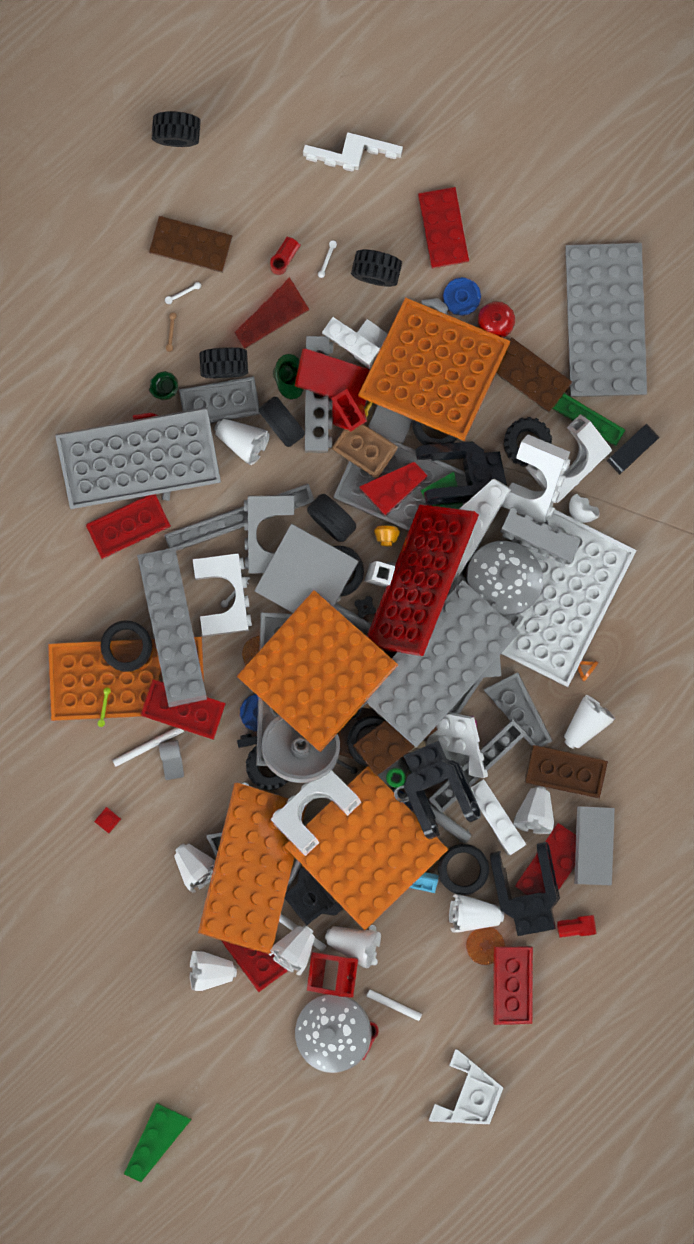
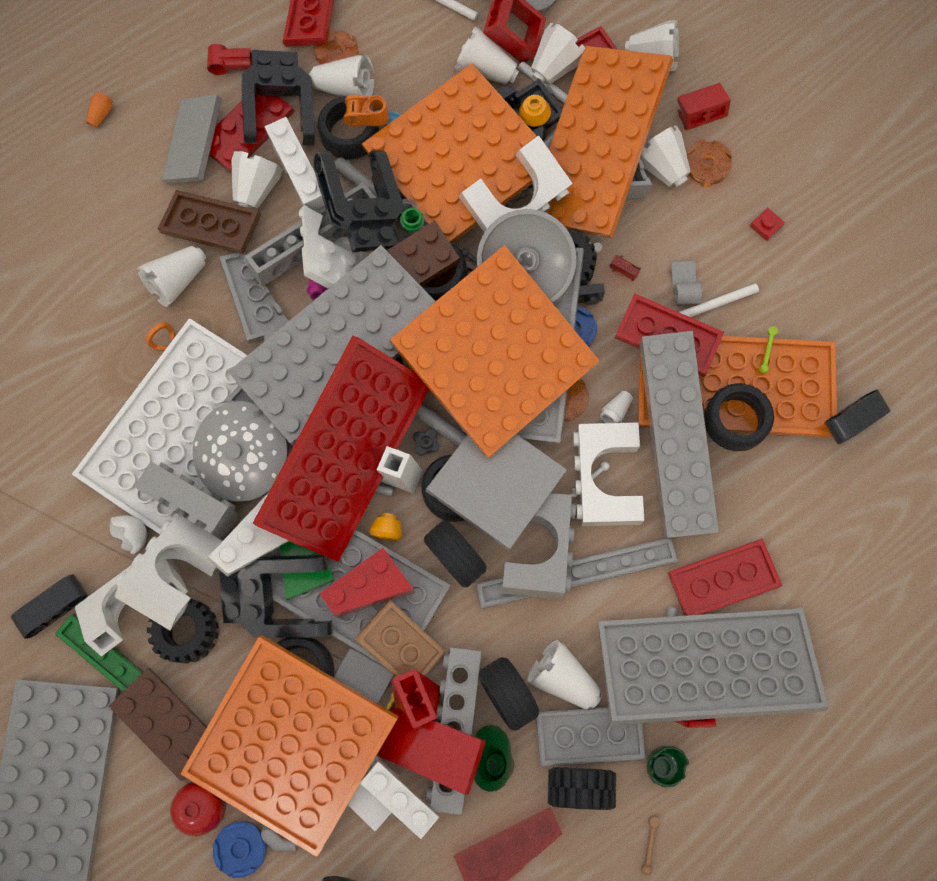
camera: 170 degrees left, 10 degrees down
(34, 659) = (857, 416): none -> black beam
(148, 871) = (709, 150): none -> clear orange plate
(166, 921) = (703, 106): none -> red hinge
(219, 648) = (617, 408): none -> white cone
(221, 768) = (624, 267): none -> clear red pin
(301, 893) = (535, 111): none -> light orange cone
(449, 874) = (364, 110): none -> orange piece
(681, 867) = (98, 109): none -> orange cone

